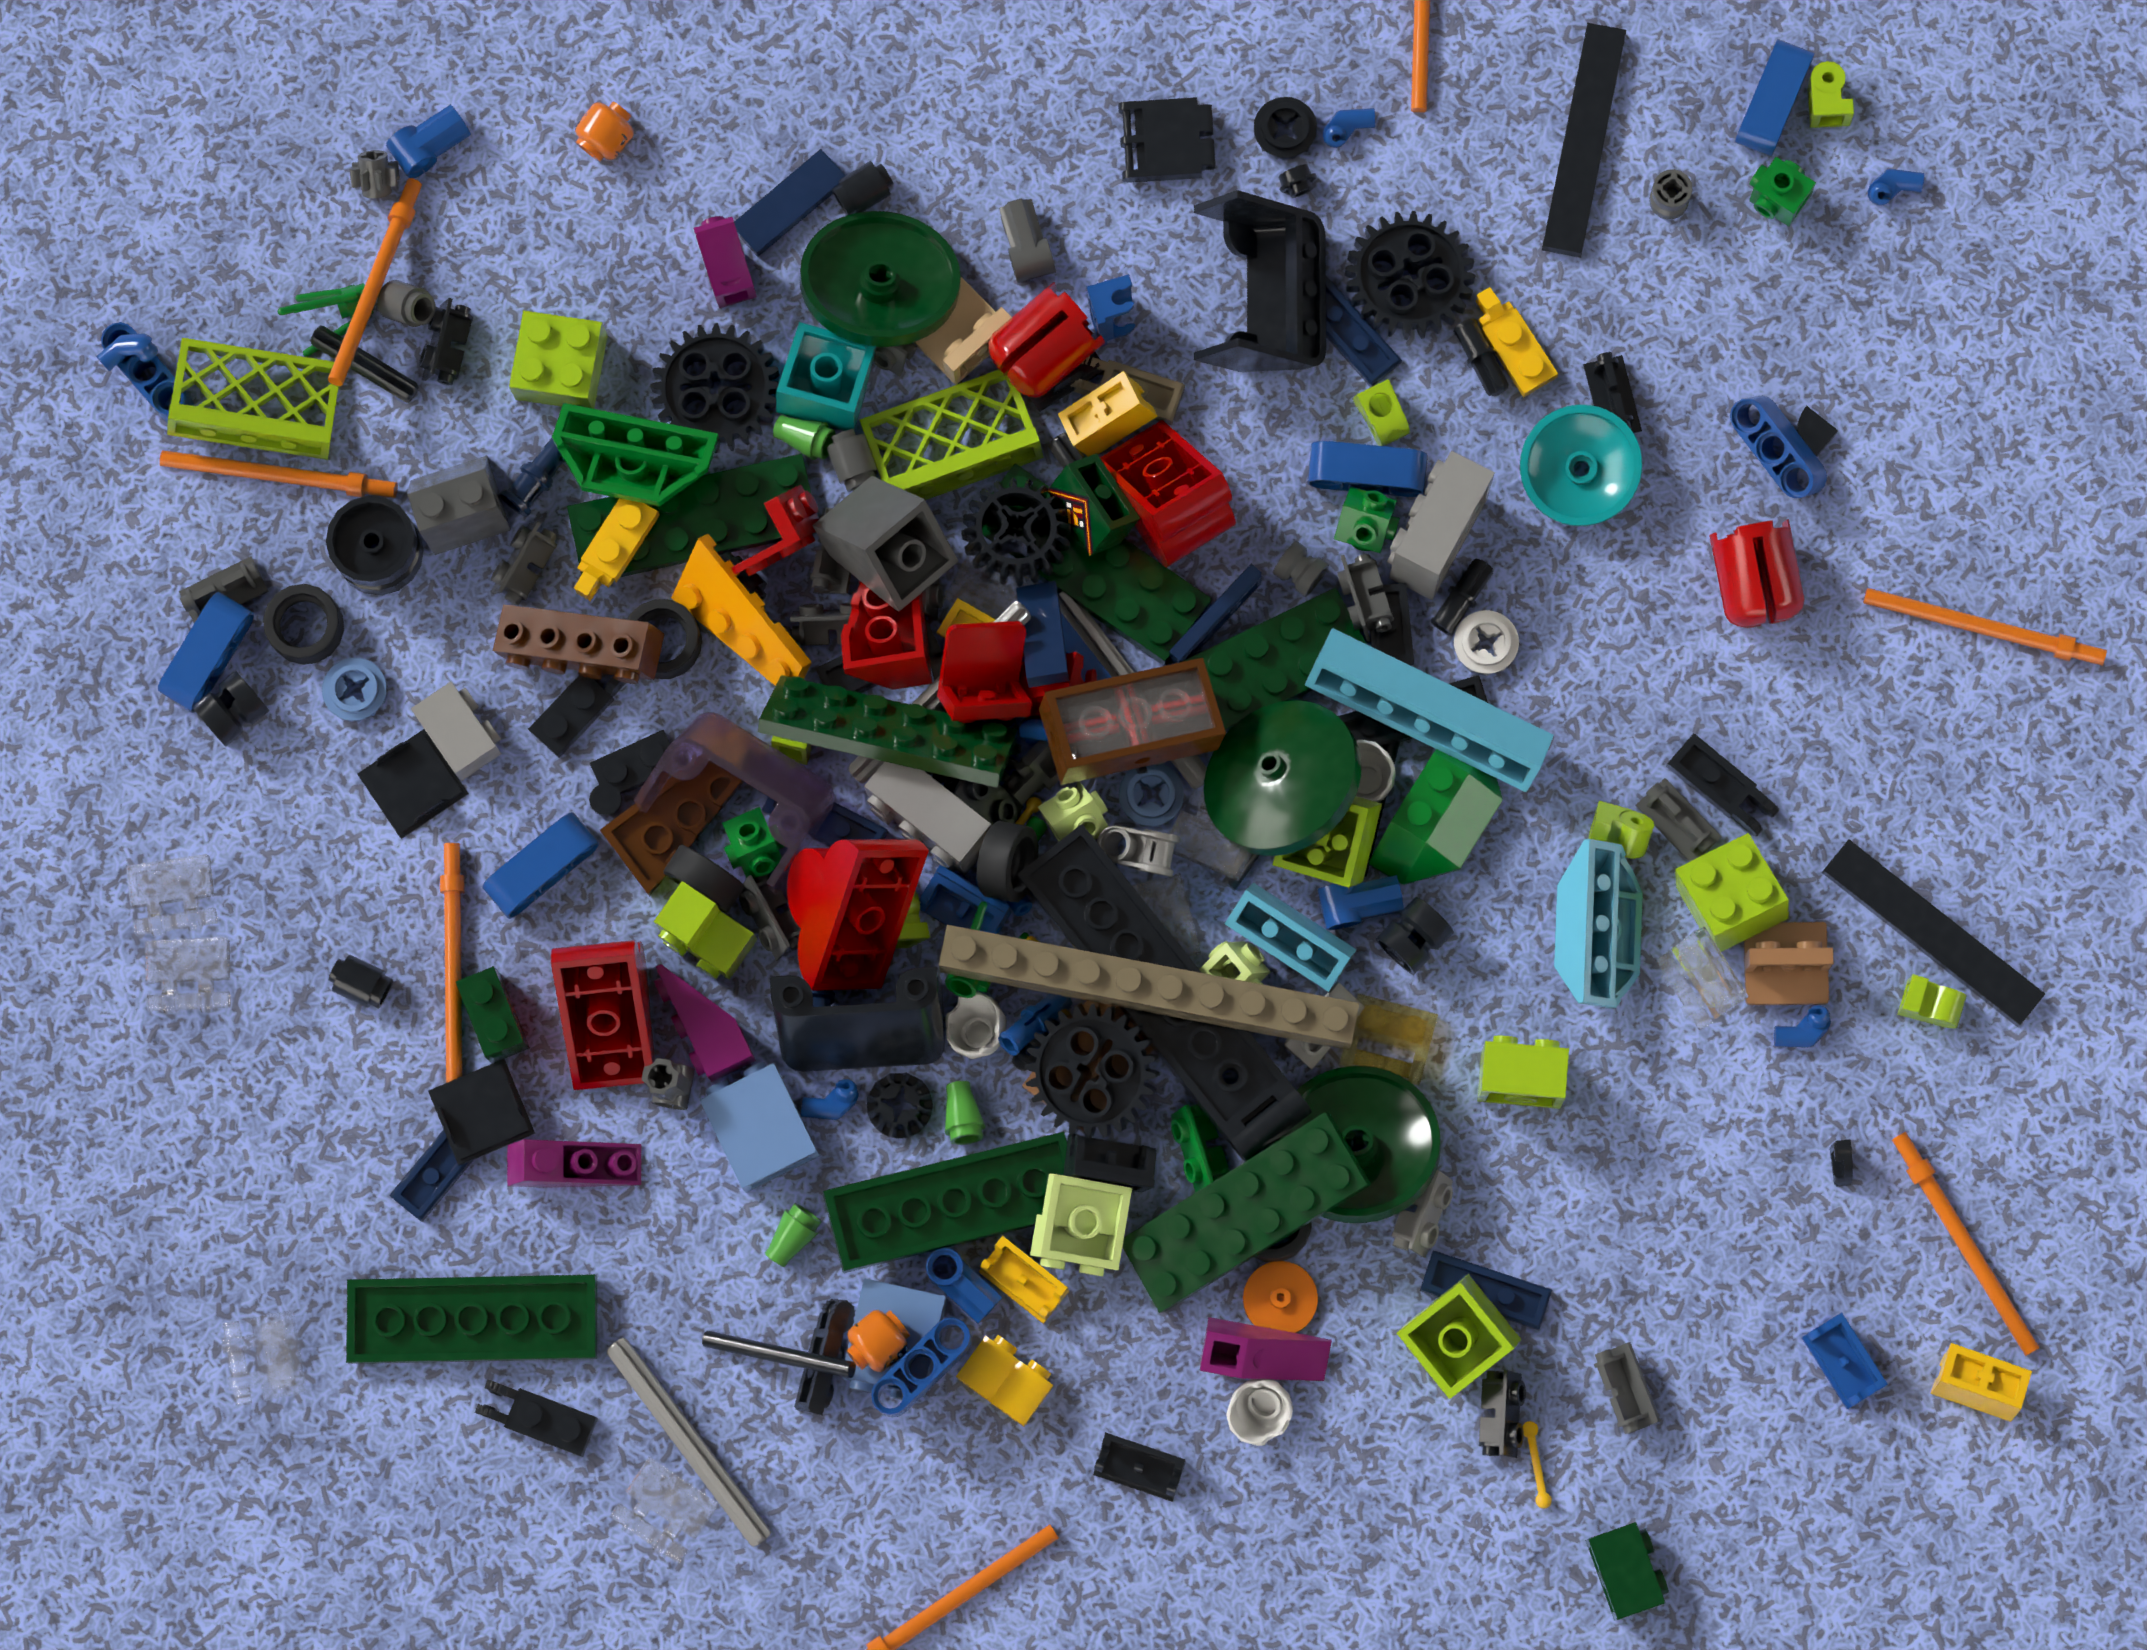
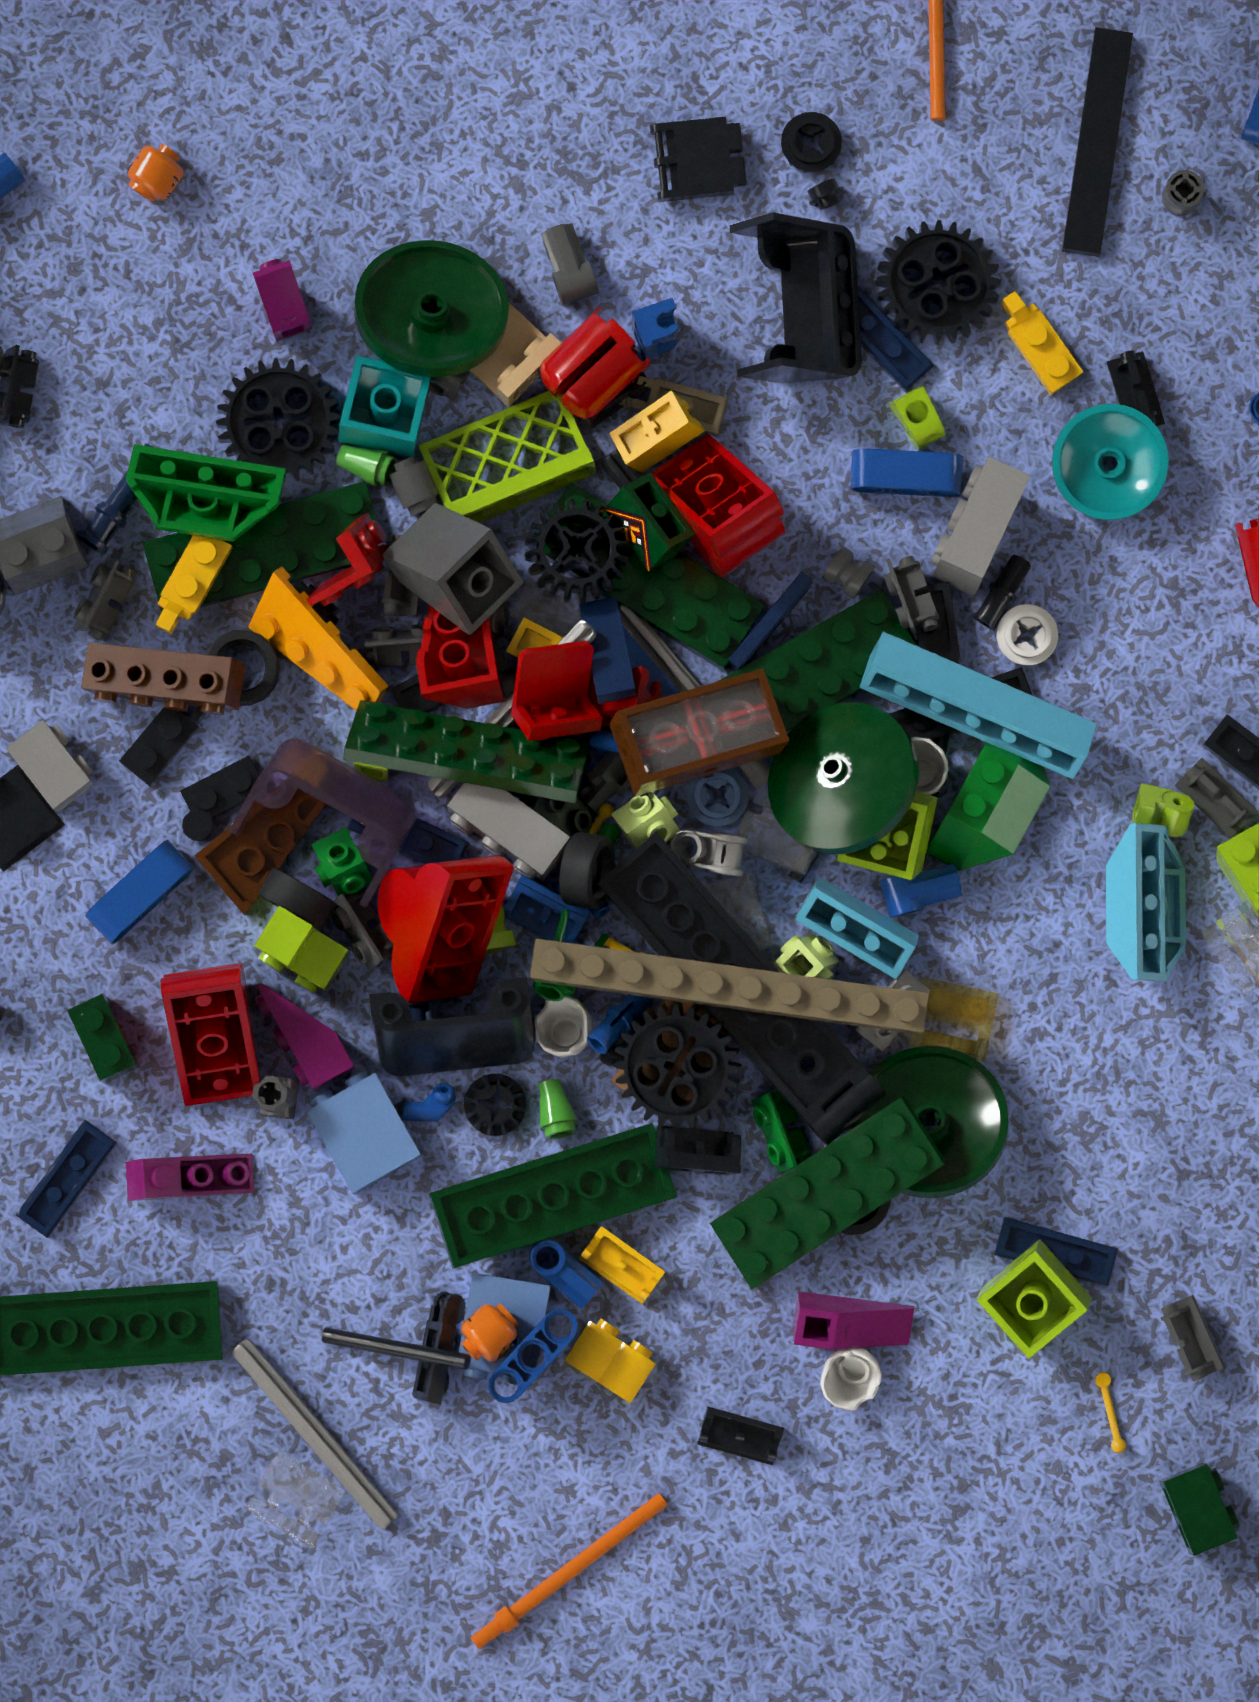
camera: 15 degrees left, 5 degrees up
(452, 886) = (56, 914): orange bar -> none
(481, 1112) = (98, 1131): black piece -> none
(542, 1419) = (174, 1419): black hinge -> none
(558, 360) = (125, 401): lime brick -> none
(788, 203) = (338, 235): dark blue tile -> none
(793, 1233) = (401, 1232): bright green cone -> none
(863, 188) = (408, 219): black brick -> none
(1081, 1224) = (674, 1211): yellowish green plate -> none
(1280, 1297) = (863, 1268): orange piece -> none
(1344, 123) = (868, 134): blue arm -> none
(1367, 520) = (909, 523): green brick -> none
(1420, 1229) = (993, 1195): light grey hinge -> none
(1425, 925) = (983, 910): black wheel -> none
(1481, 357) = (1009, 359): black axle -> none
(1505, 1395) = (1077, 1382): black hinge -> none
(1523, 1072) = (1082, 1048): lime brick -> none

